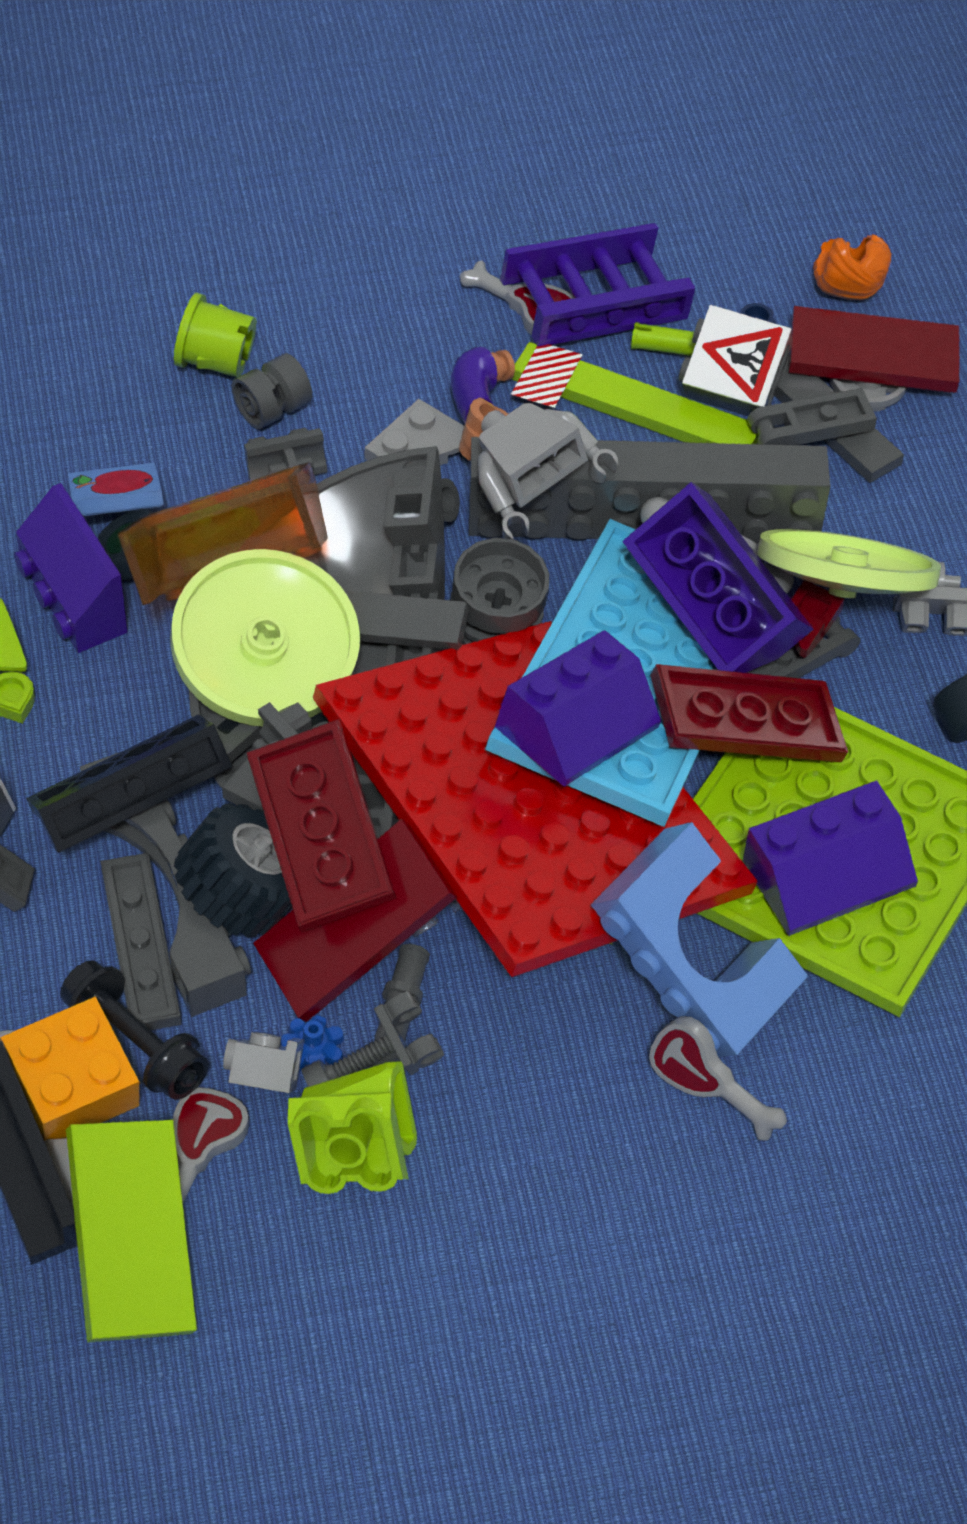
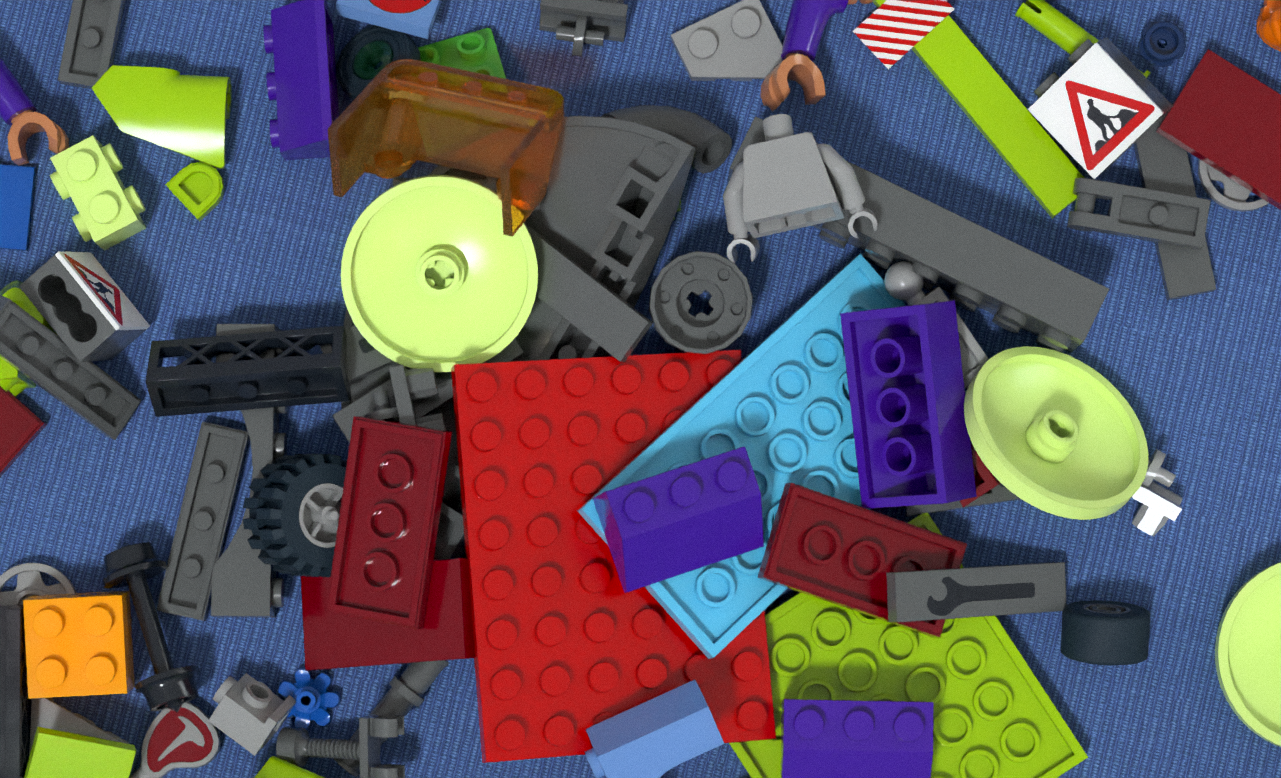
camera: 30 degrees right, 30 degrees up
(855, 707) = (976, 591): none -> dark grey tile

